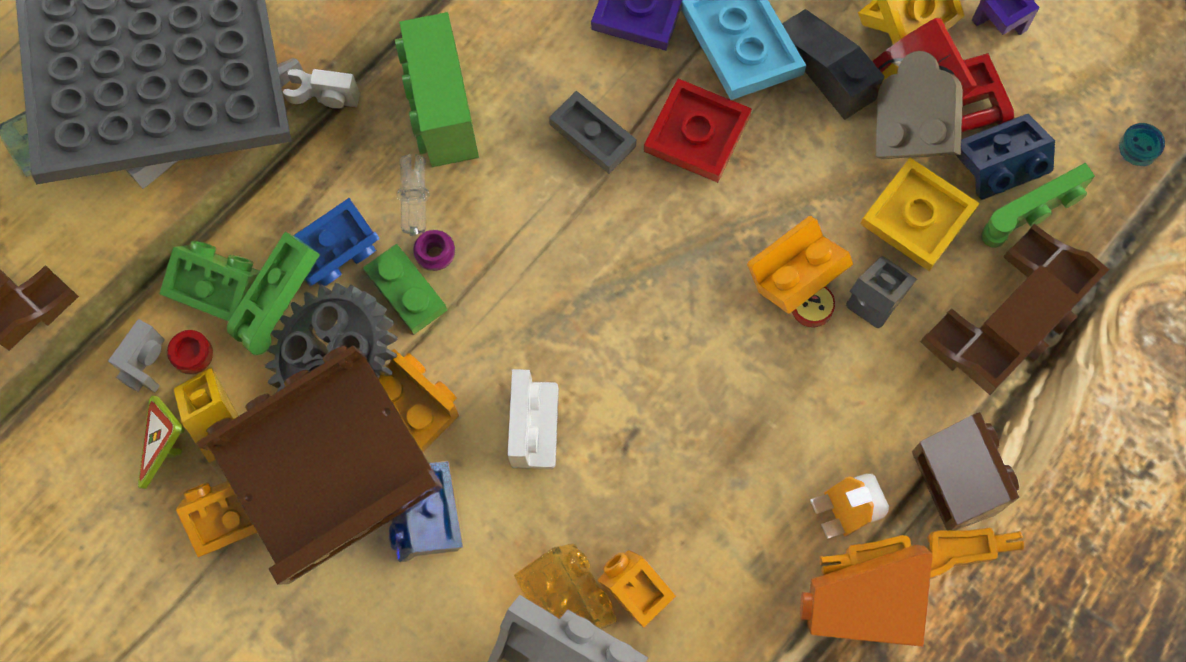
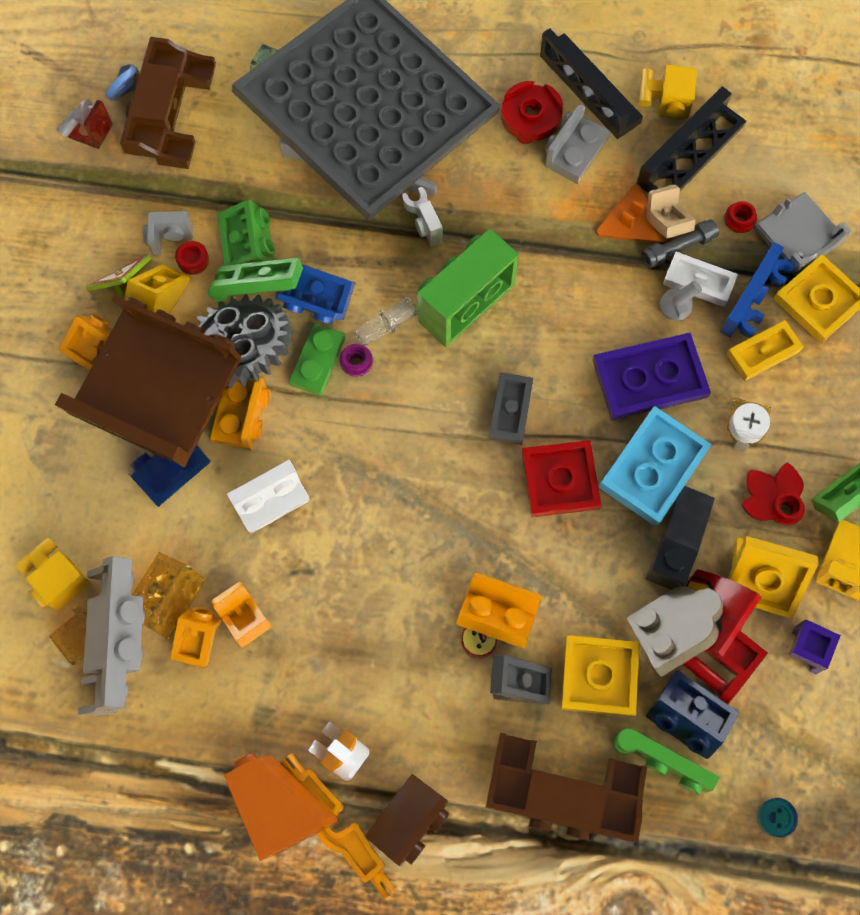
camera: 55 degrees right, 0 degrees up
(643, 524) = (240, 614): none -> light orange bracket

